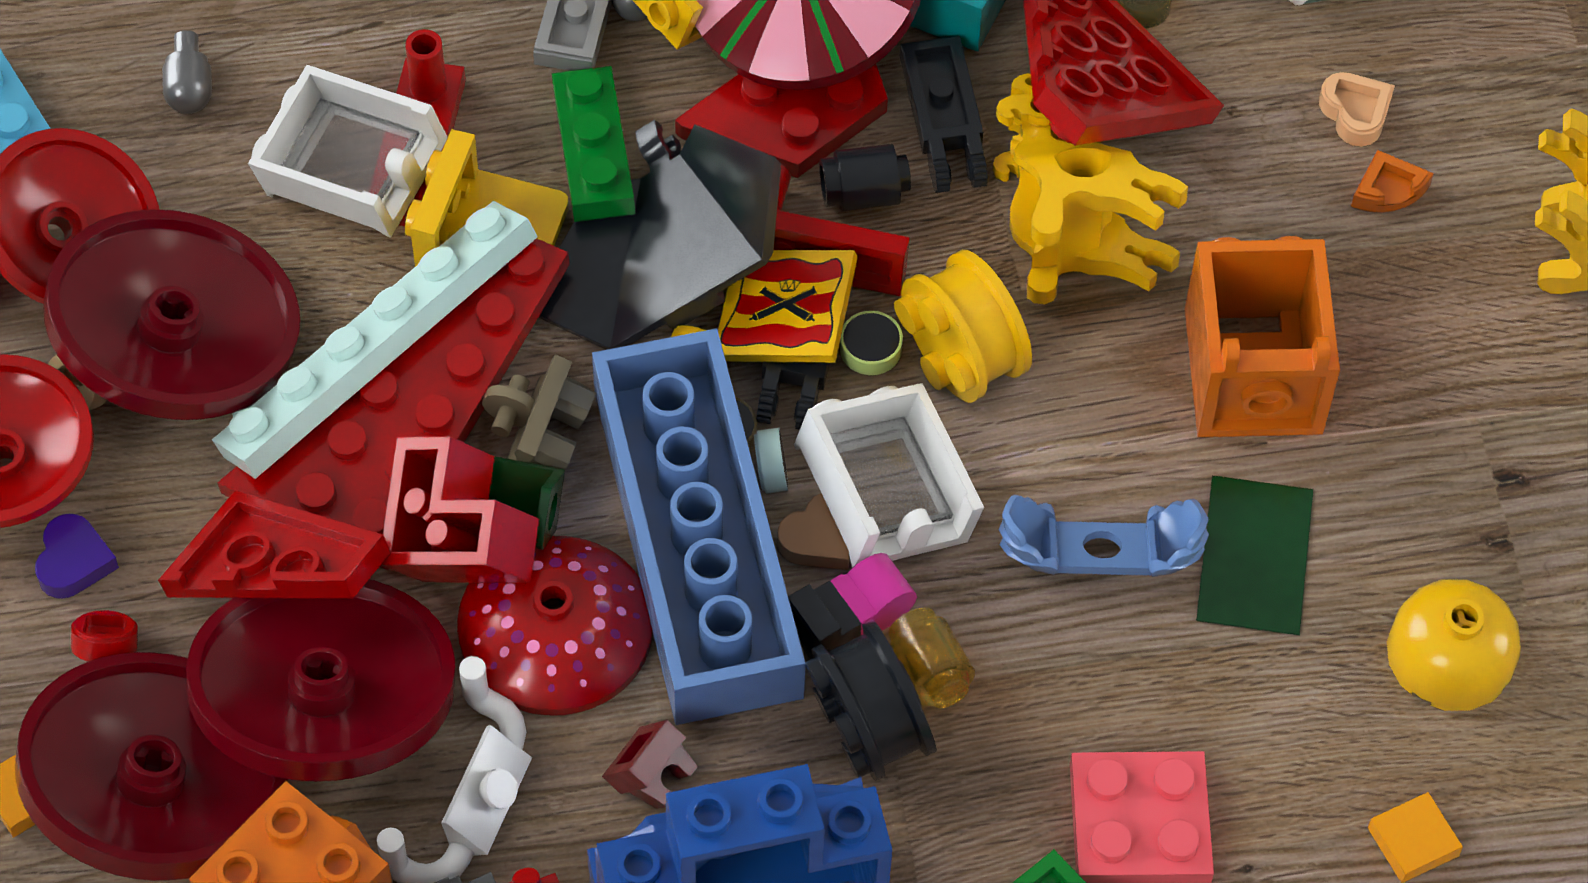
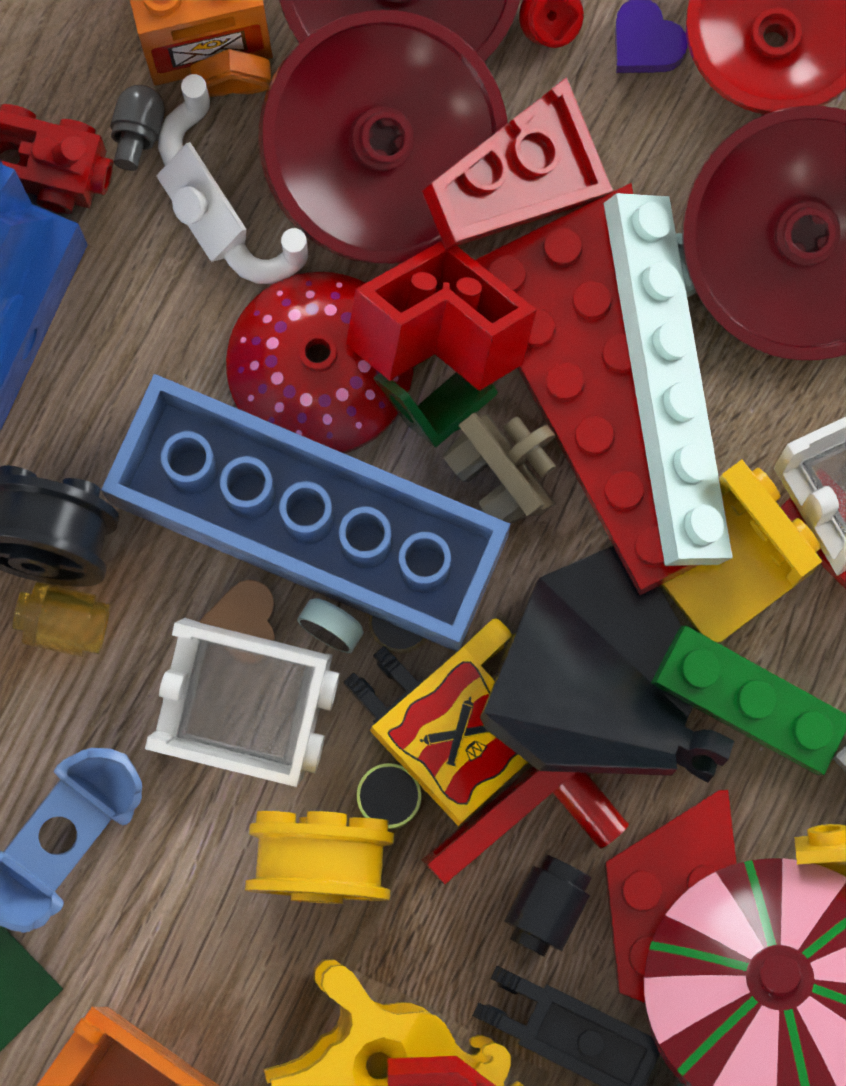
camera: 130 degrees right, 20 degrees up
(643, 760) = (141, 341): tile -> none
(840, 606) = (153, 589): leg -> none

